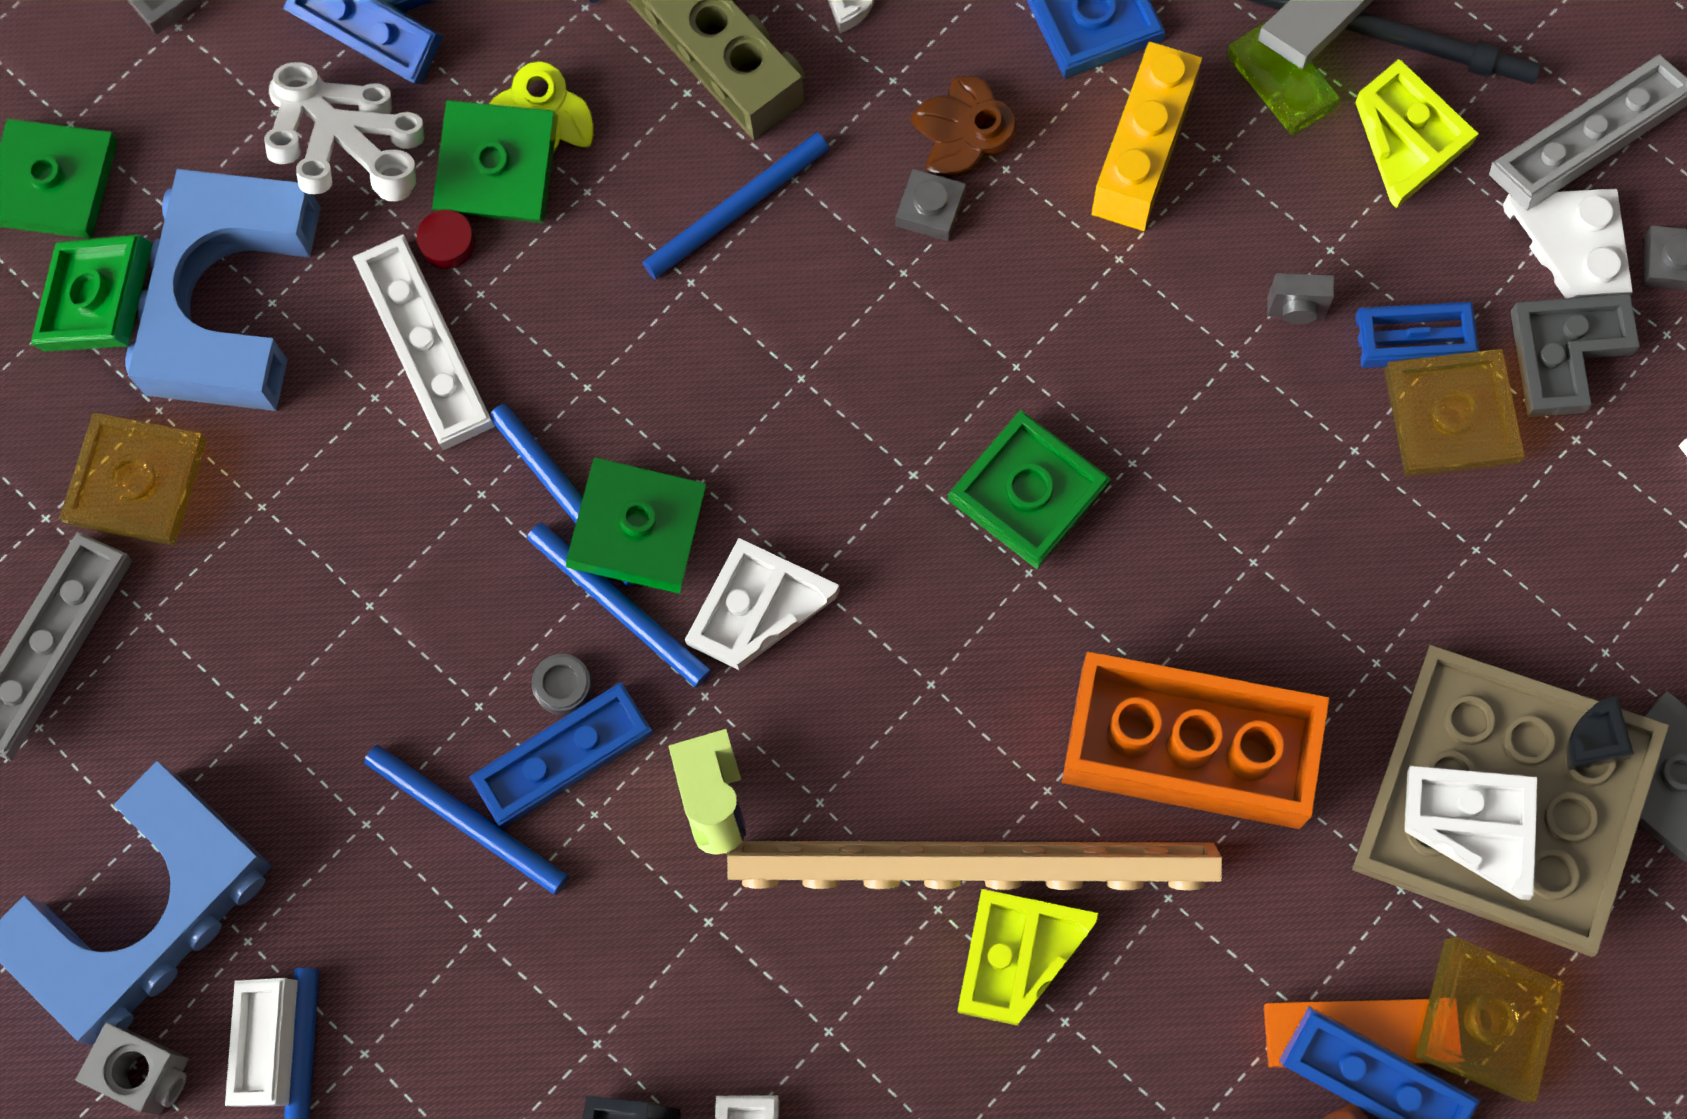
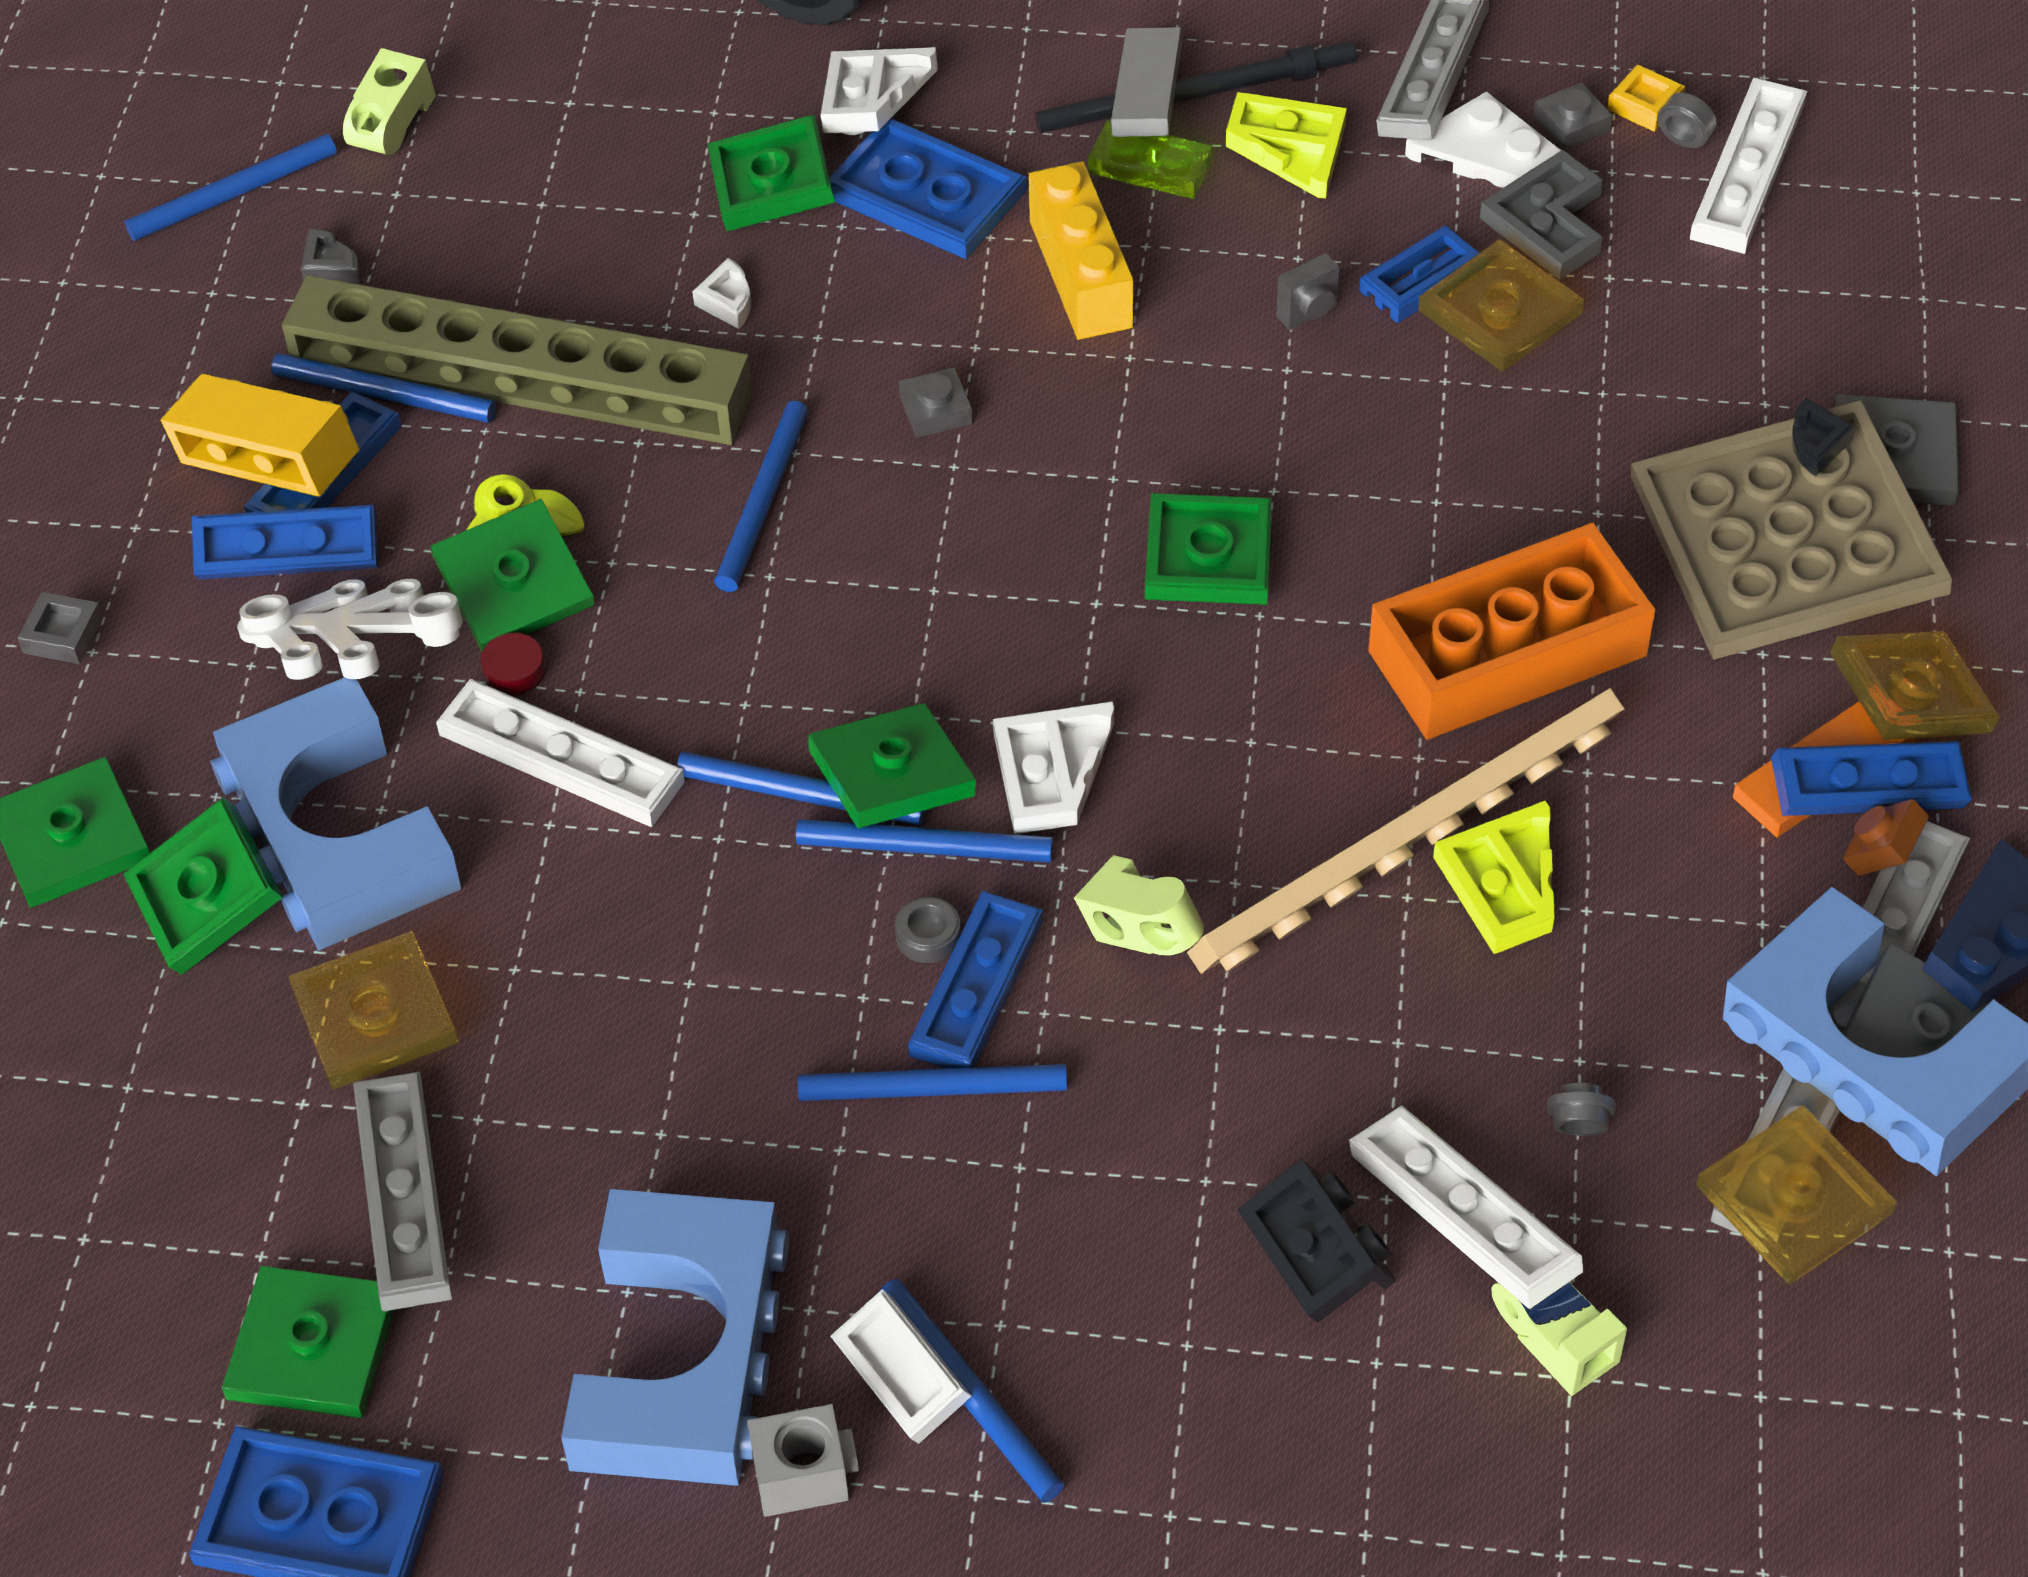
camera: 40 degrees left, 20 degrees down
(956, 125) = (912, 331): reddish brown plate -> none
(1477, 821) = (1782, 544): white wing -> none

